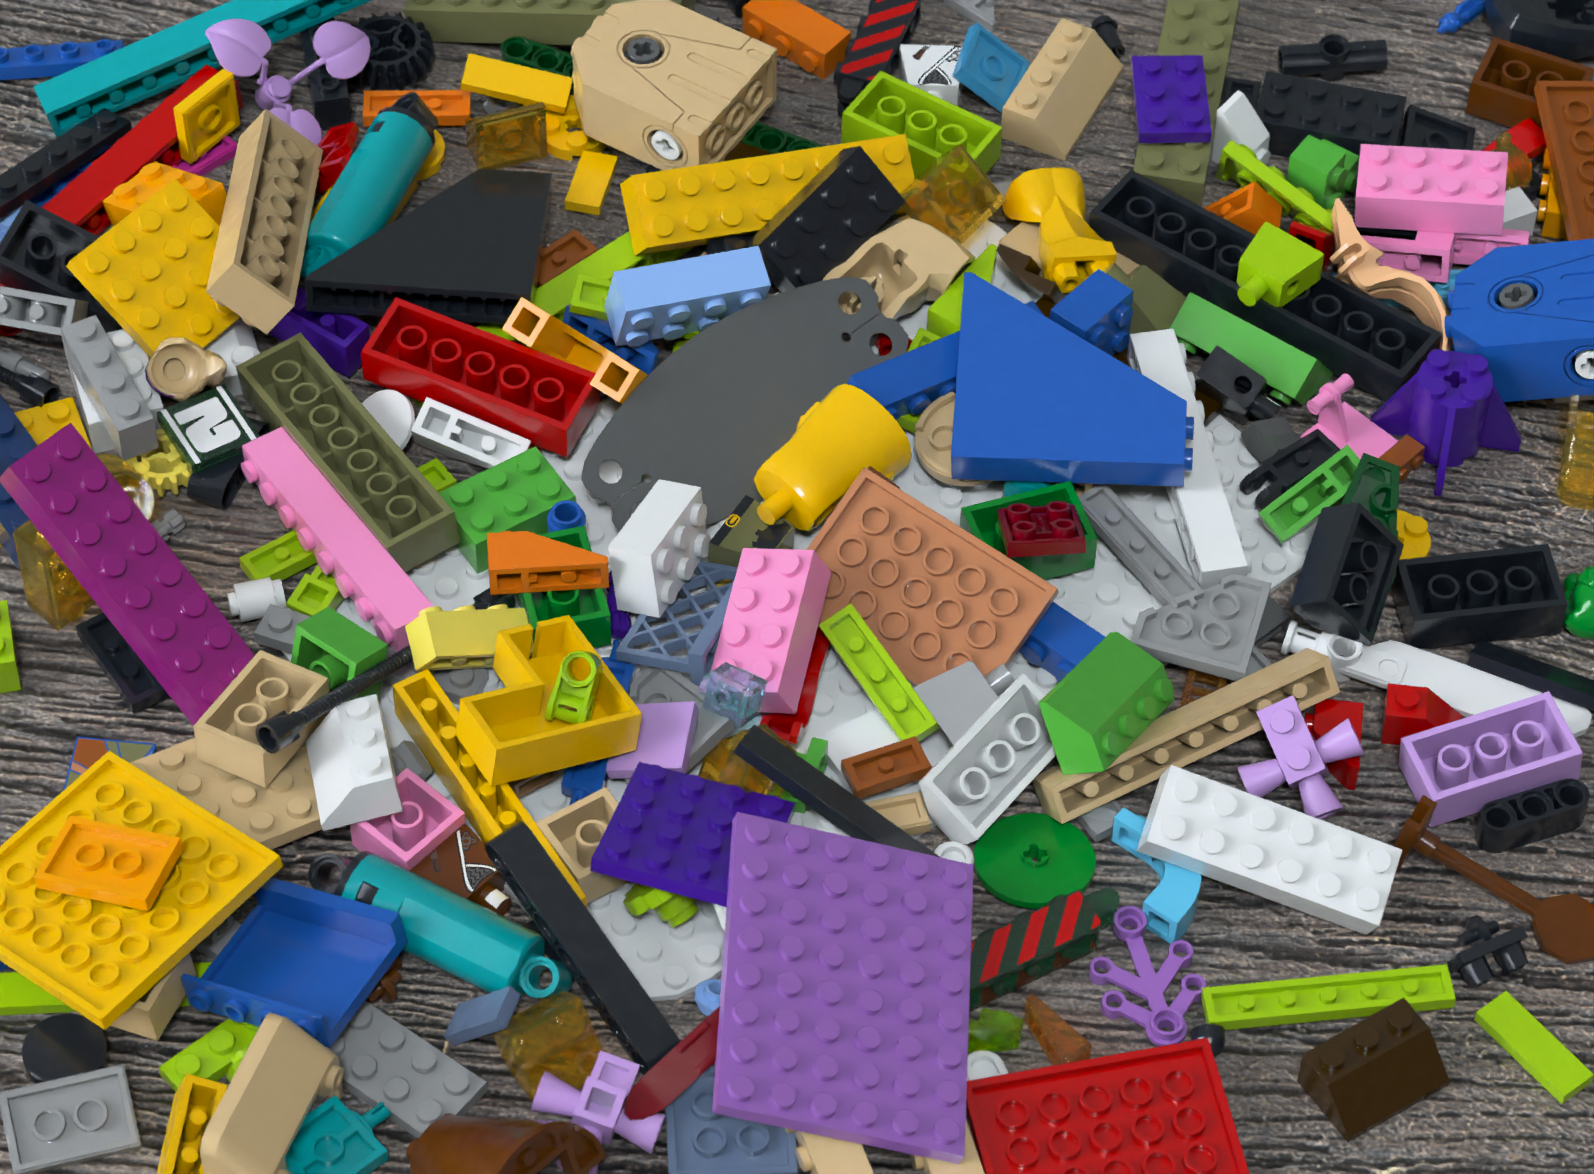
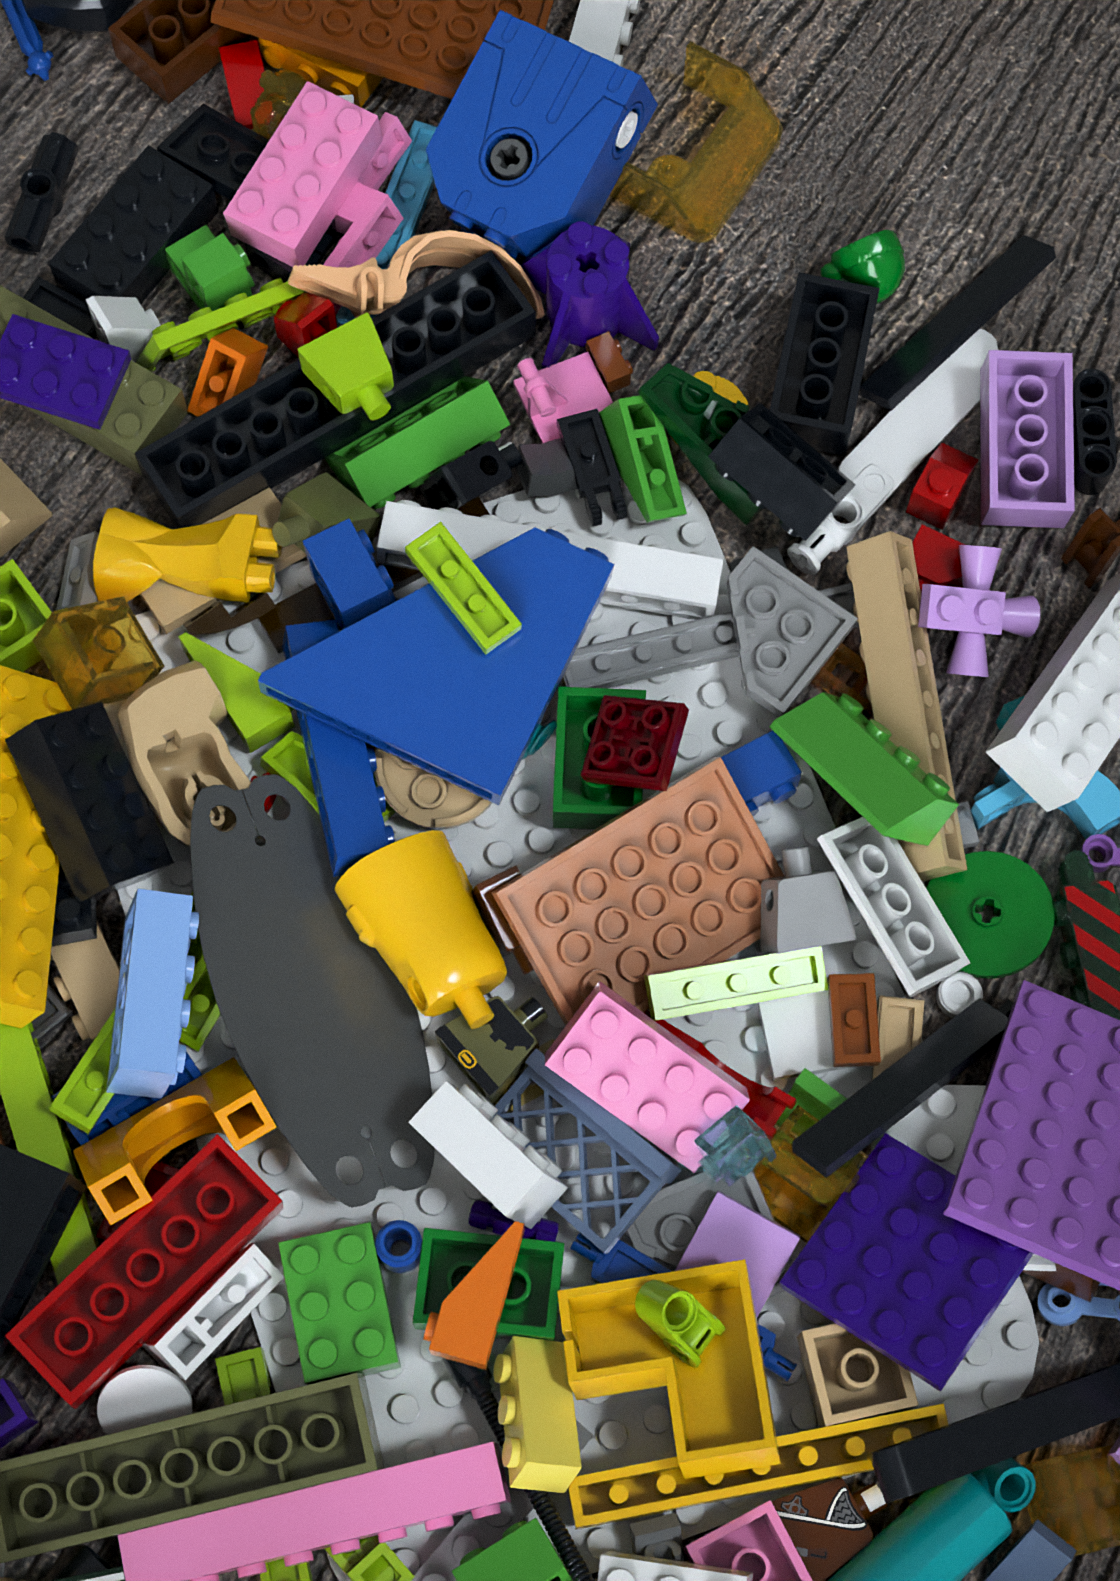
camera: 70 degrees left, 20 degrees up
(1104, 365) = (463, 588): none -> lime plate

